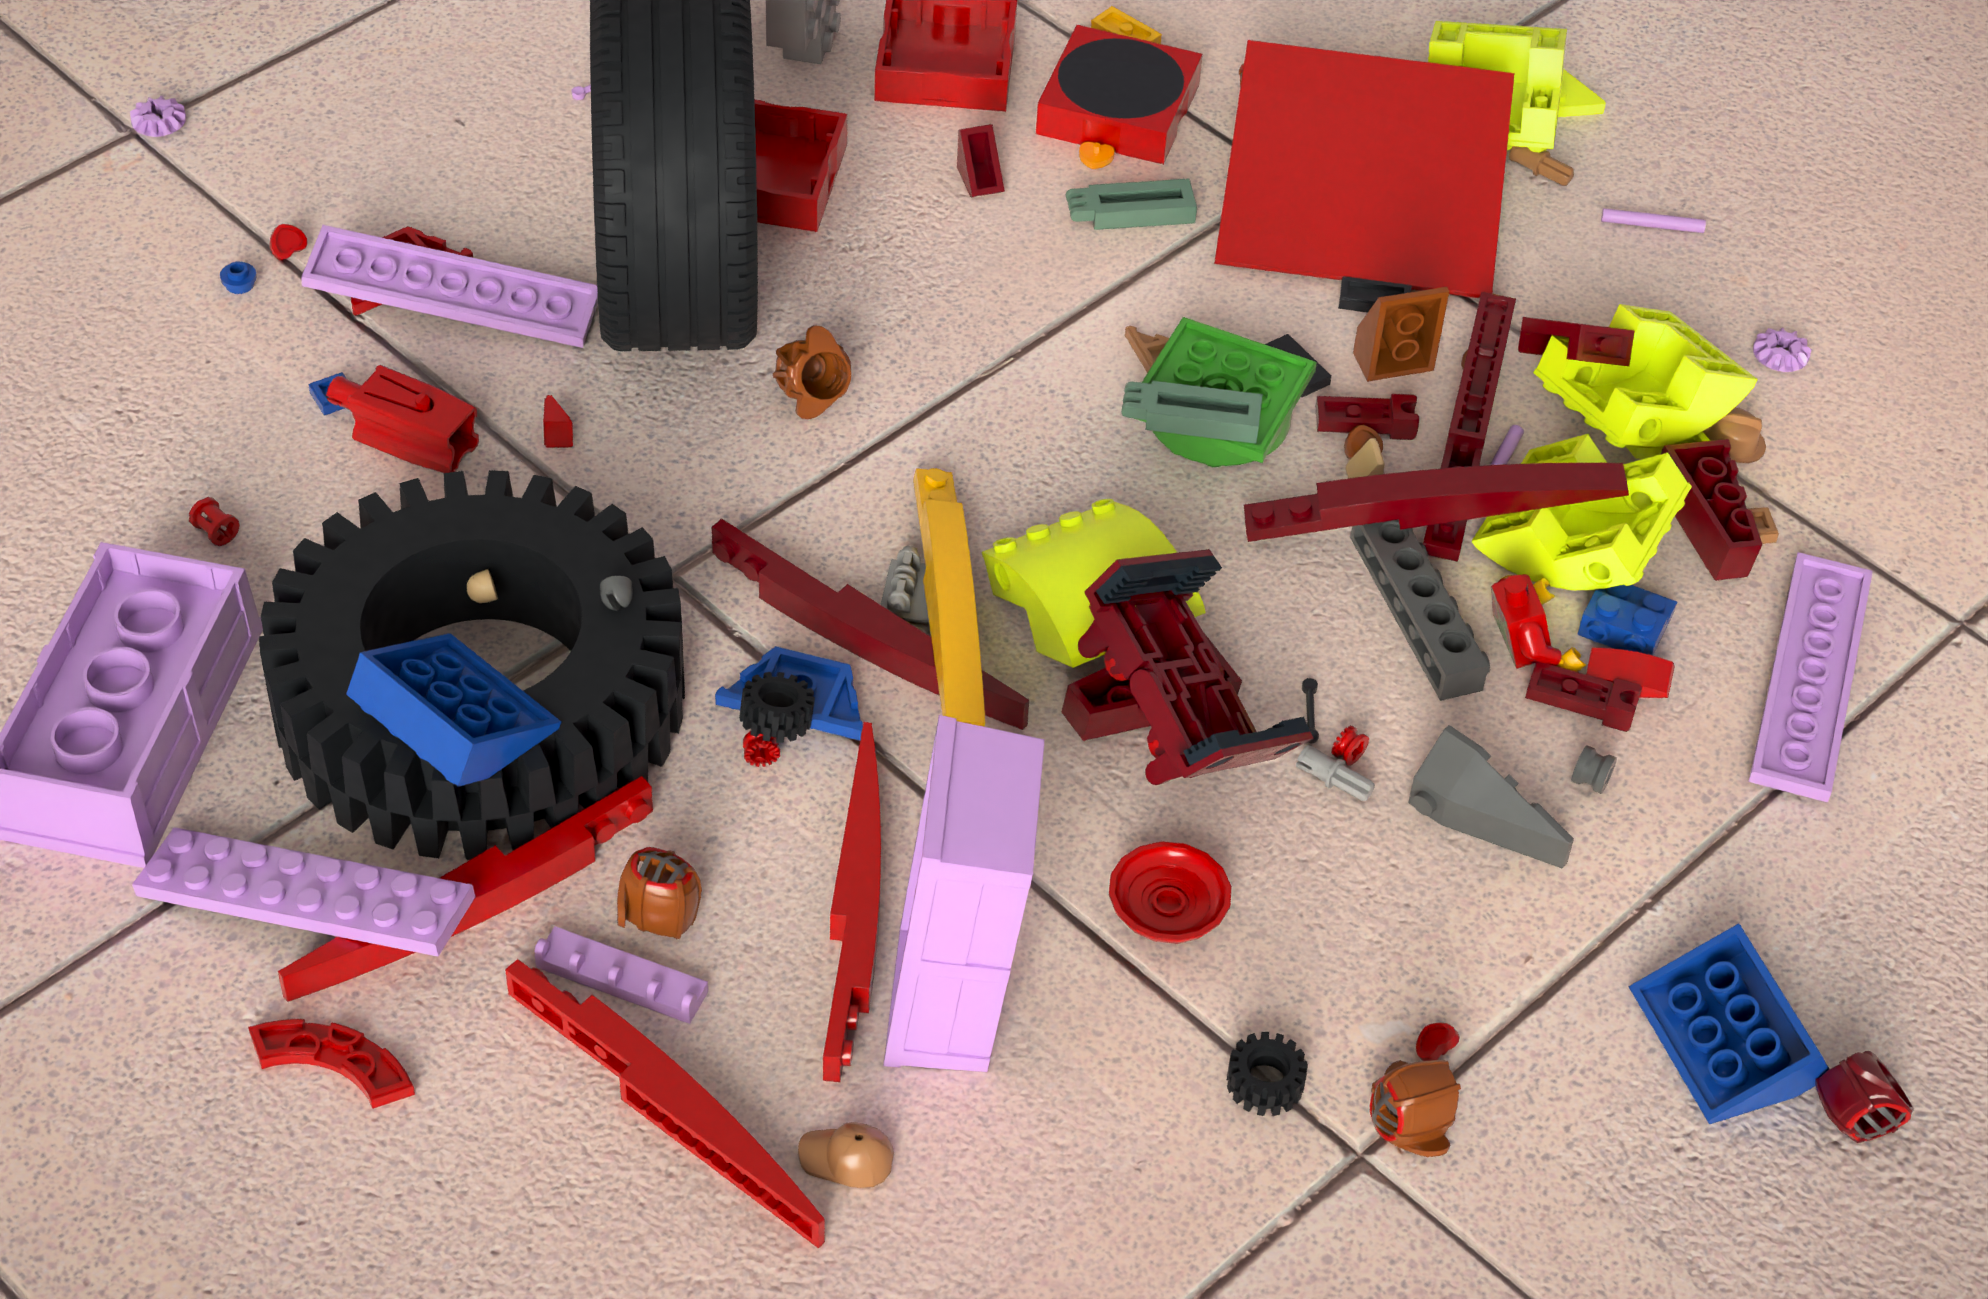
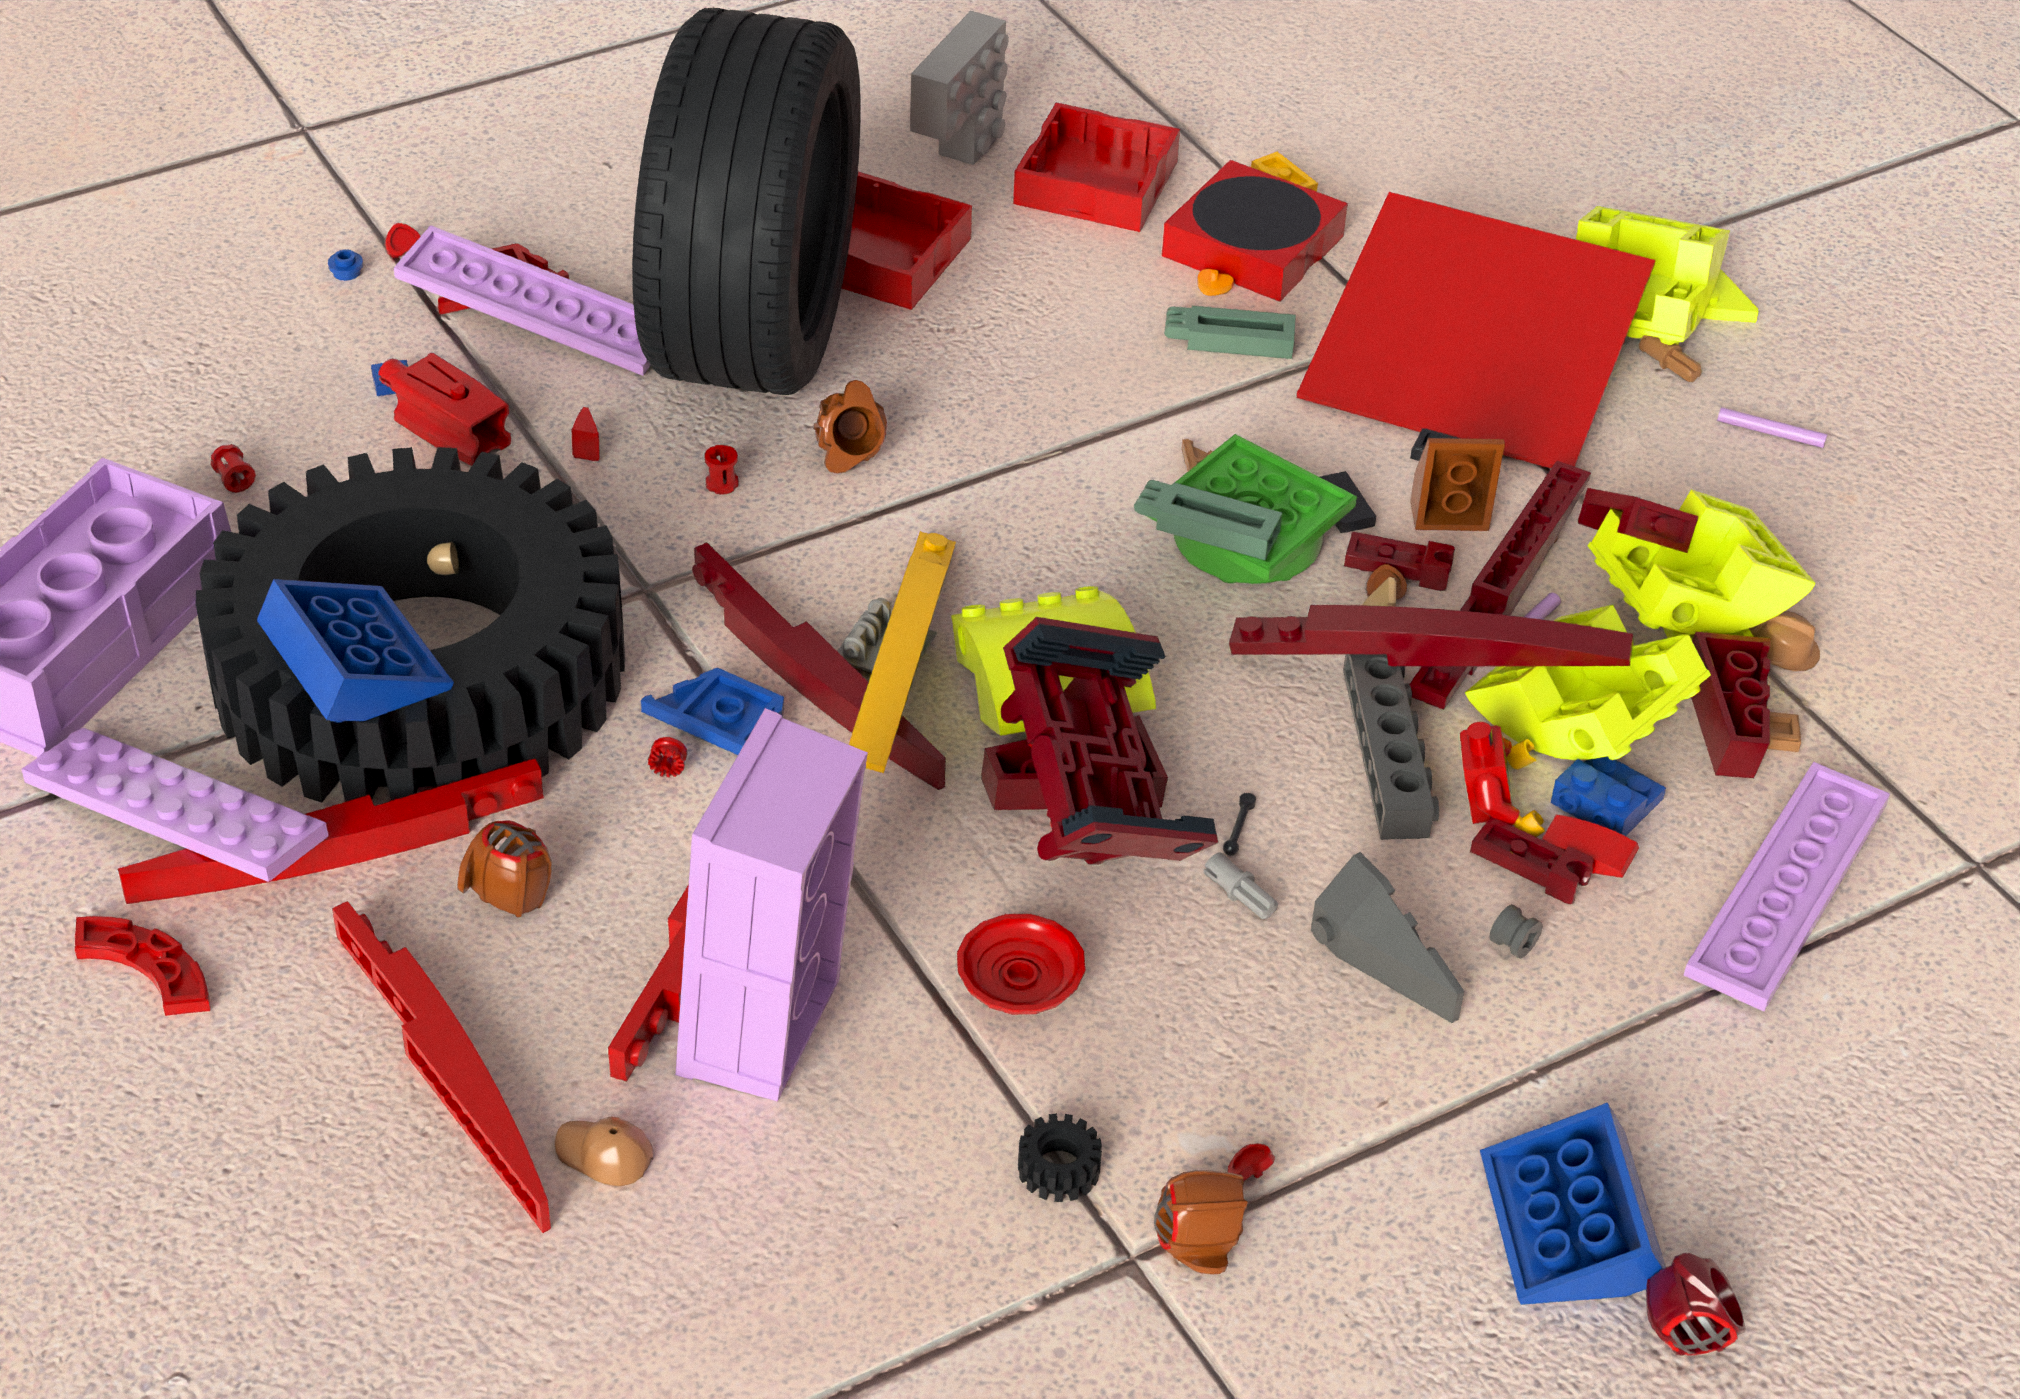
camera: 15 degrees right, 5 degrees down
(147, 123) = (318, 122): lavender gear -> none
(616, 592) = (553, 576): dark grey hinge -> none
(621, 974) = (450, 939): lavender hinge -> none
(701, 436) = (721, 469): none -> red bush
(777, 707) = (690, 718): black tyre -> none
(979, 161) = (1090, 267): dark red slope -> none
(1350, 746) = (1265, 862): red bush -> none
(1778, 358) = (1857, 565): lavender gear -> none

